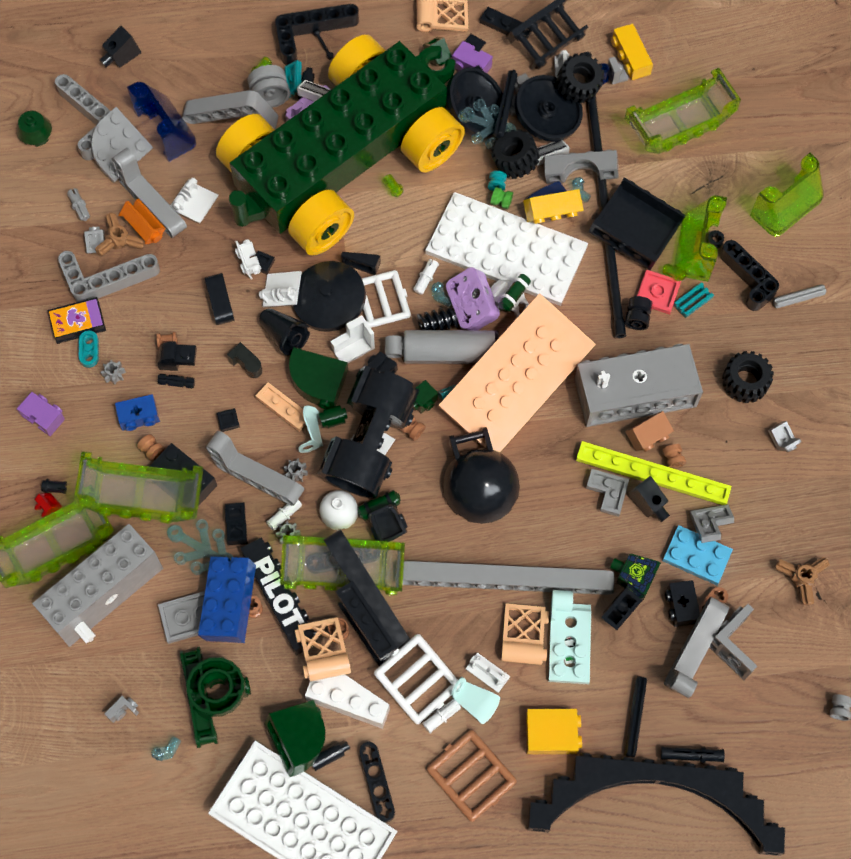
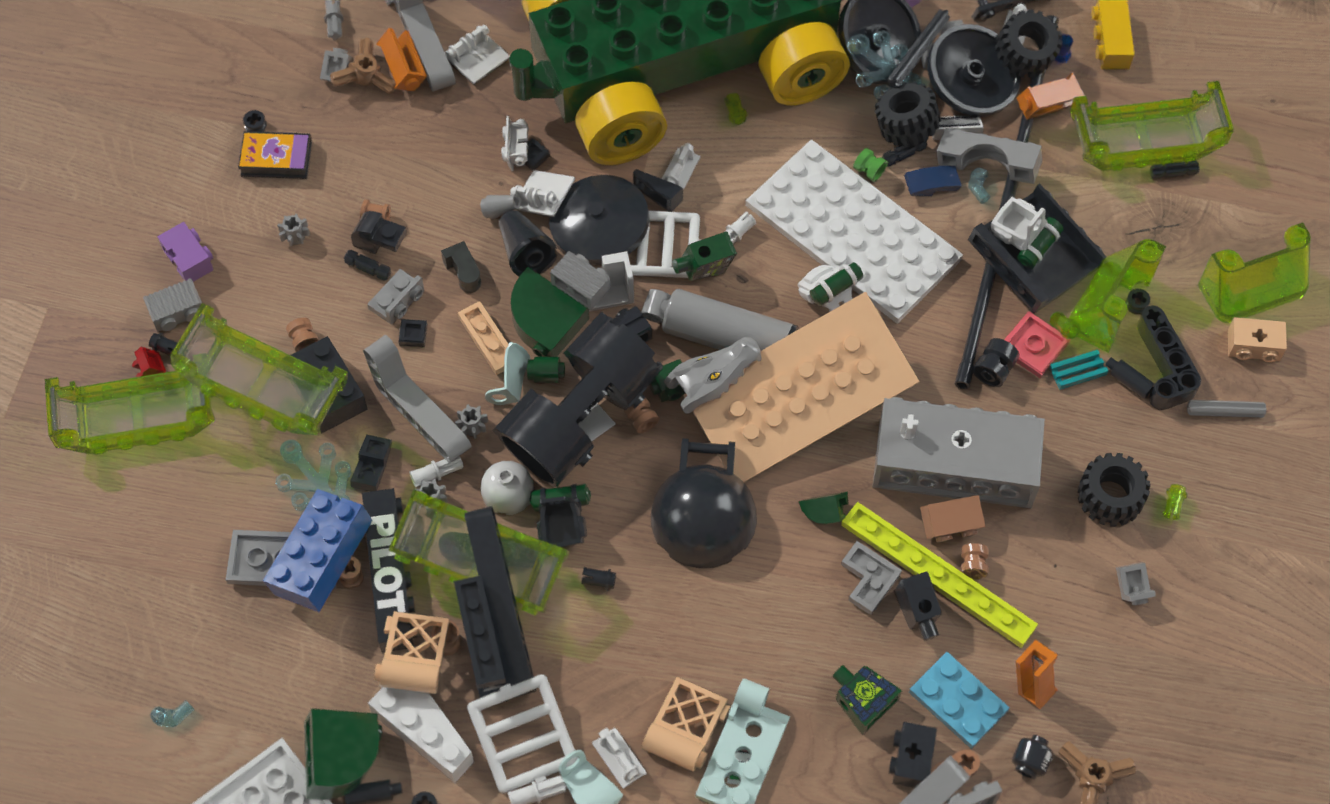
camera: 20 degrees right, 5 degrees down
(46, 300) = (253, 115): none -> black bush
(49, 455) = (173, 305): none -> light grey brick
(88, 350) = (274, 195): teal plate -> none
(98, 585) = (165, 481): light grey piece -> none
(106, 277) = (329, 116): light grey beam -> none
(118, 709) = (132, 643): light grey bracket -> none
(128, 411) = (303, 288): blue brick -> none
(204, 675) = (251, 634): dark green piece -> none
(206, 397) = (396, 296): none -> light grey bracket
(219, 299) = (460, 181): black beam -> none
(254, 308) = (497, 205): none -> light grey cone
(336, 345) = (580, 279): none -> light grey brick
(371, 239) = (681, 165): none -> white hinge
(416, 301) = (706, 257): none -> dark green torso
(426, 552) = (599, 578): none -> black pin
(438, 294) = (742, 263): clear light blue arm -> none
(438, 320) = (727, 291): black piece -> none
(454, 384) = (711, 374): none -> light grey animal
(472, 299) = (781, 278): lavender axle -> none
(497, 179) = (873, 139): teal wheel -> none
(507, 577) = (690, 644): light grey beam -> none
(519, 182) = (901, 153): none -> black axle
(553, 206) = (932, 193): yellow brick -> none
(561, 452) = (825, 508): none -> dark green brick
(607, 111) = (1049, 97): none -> window
(616, 71) = (1082, 51): light grey bracket -> none
(622, 606) = (828, 730): black brick -> none
(627, 213) = (1027, 230): none -> white piece
(706, 138) = (1174, 169): none -> black axle
(708, 519) = (987, 658): light grey plate -> none
(729, 294) = (1130, 377): none -> black cylinder
(745, 521) = (1036, 674): none -> orange window
(760, 577) = (1032, 757): none -> black head
(789, 371) = (1175, 499): none -> clear neon green pin
(803, 242) = (1257, 339): none -> light nougat brick

